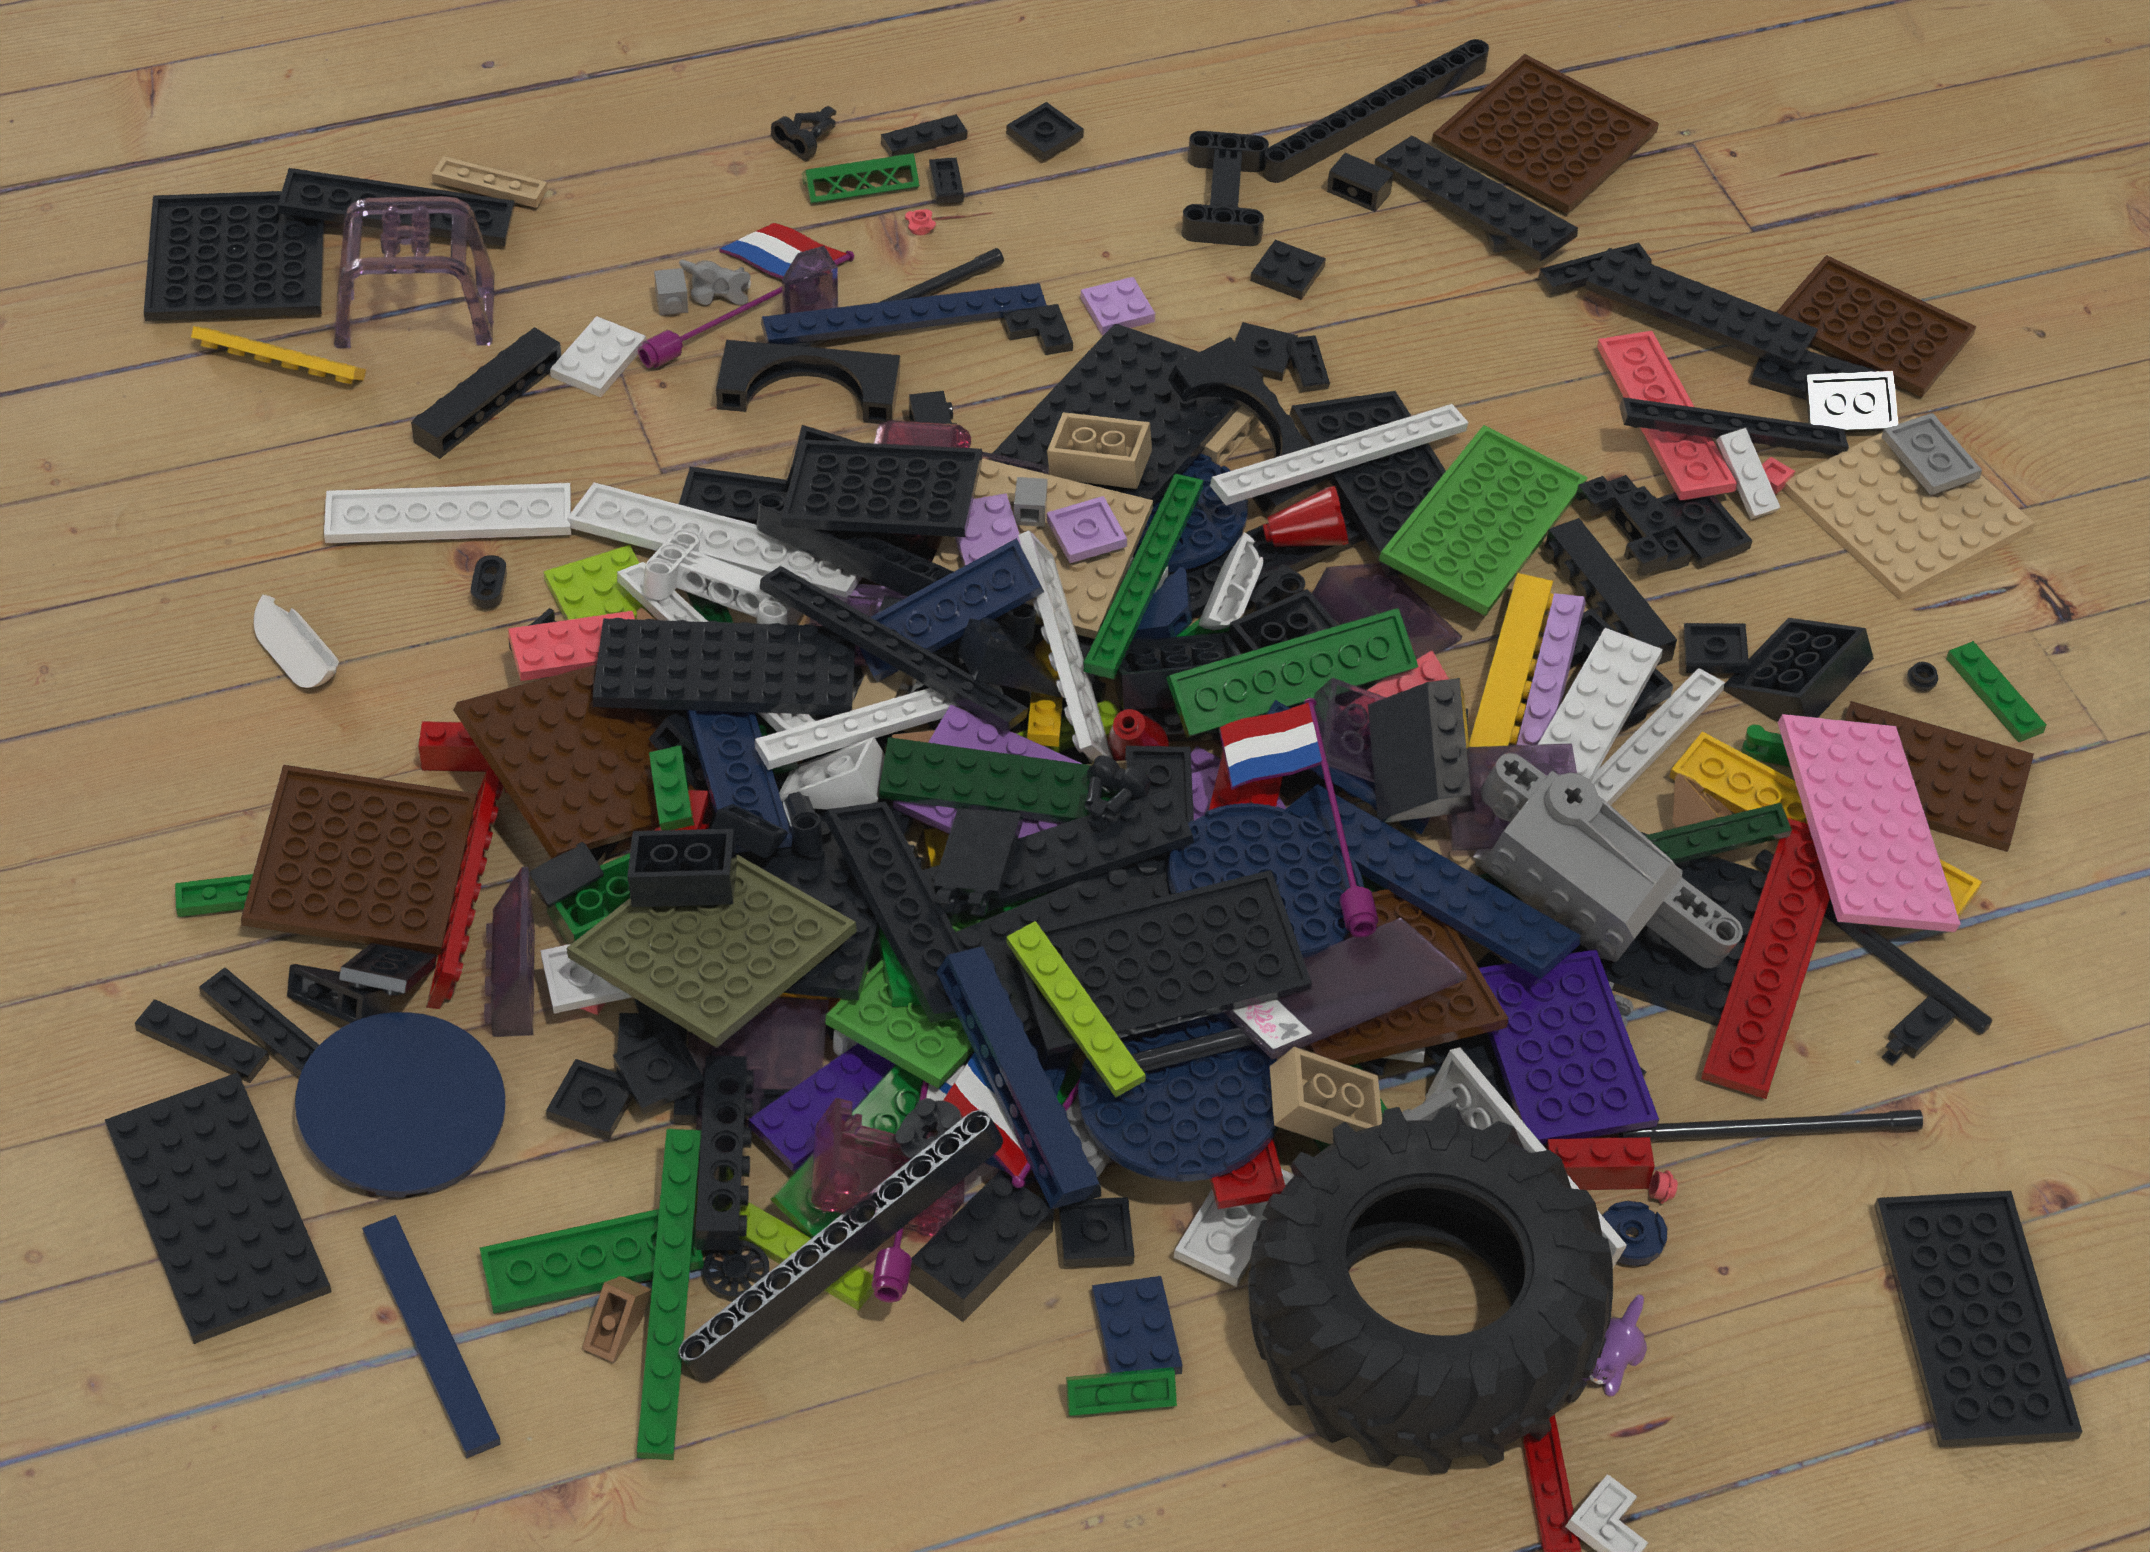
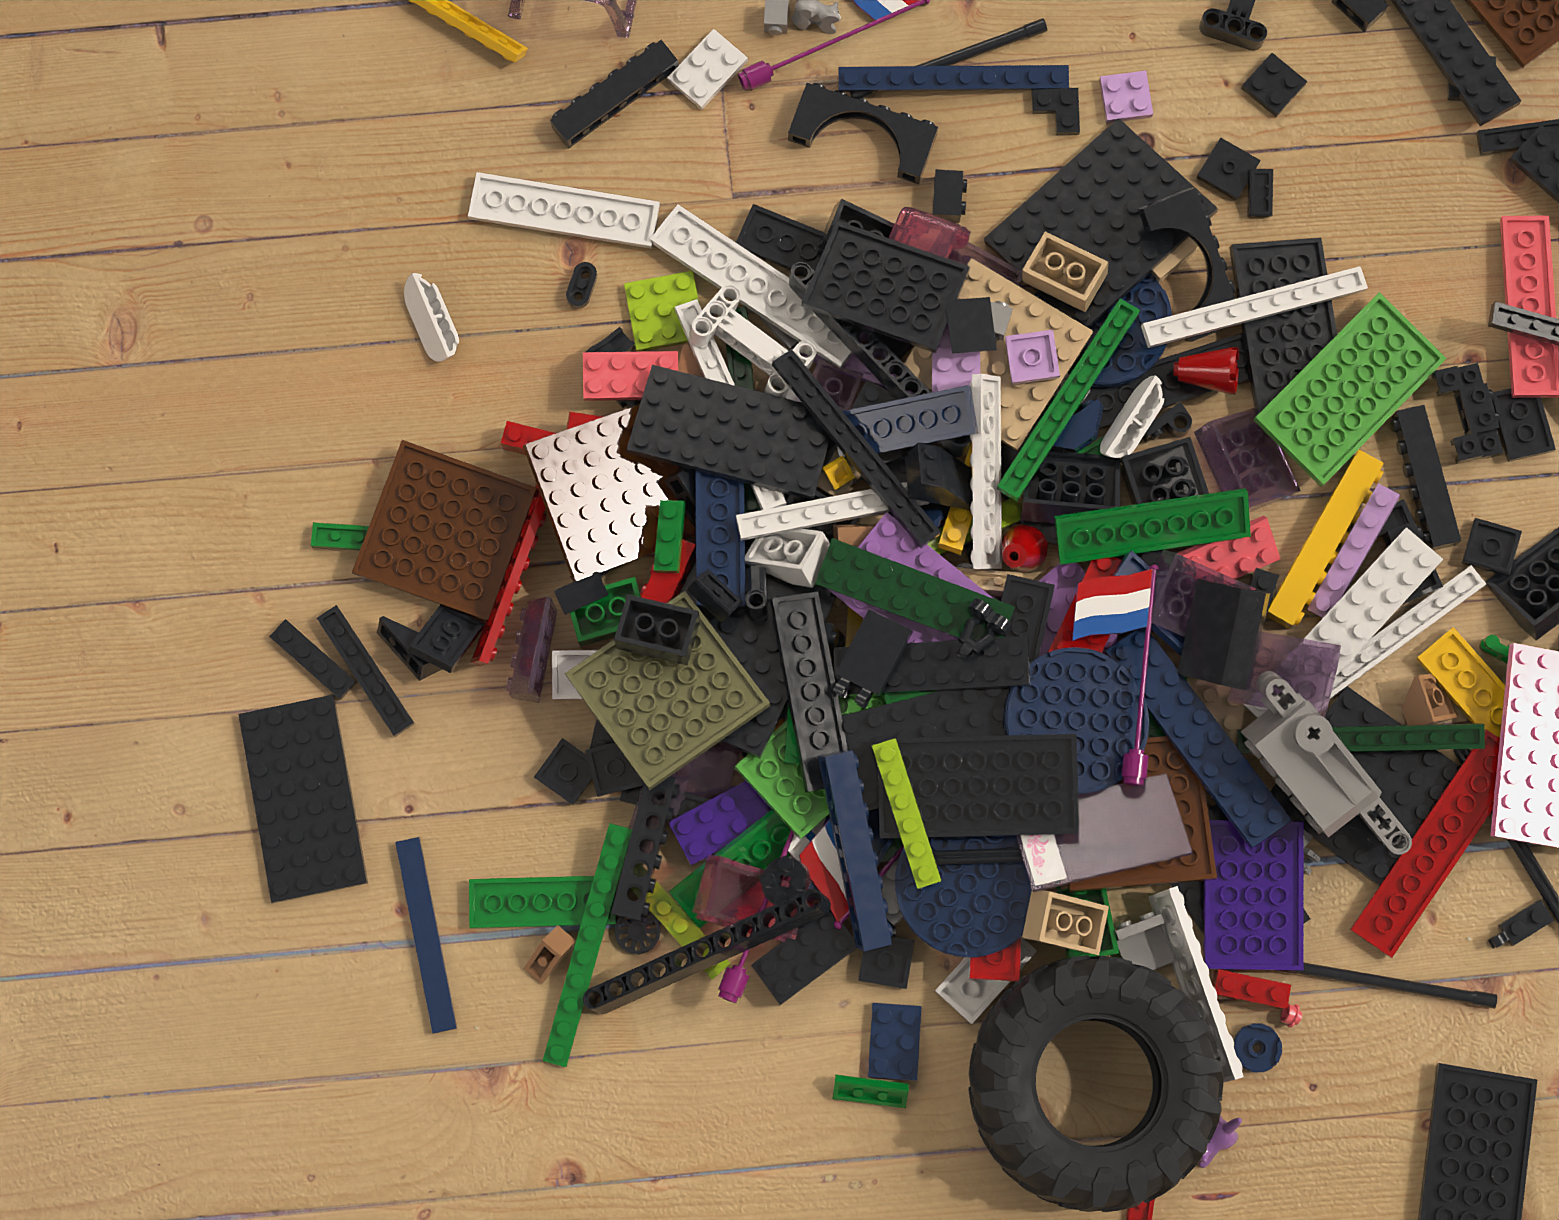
camera: 20 degrees right, 30 degrees up
(400, 1104) = (436, 748): dark blue tile -> none
(810, 282) = (884, 37): slope -> none
(875, 686) = (838, 472): none -> yellow plate
(1000, 500) = (970, 325): none -> black sticker

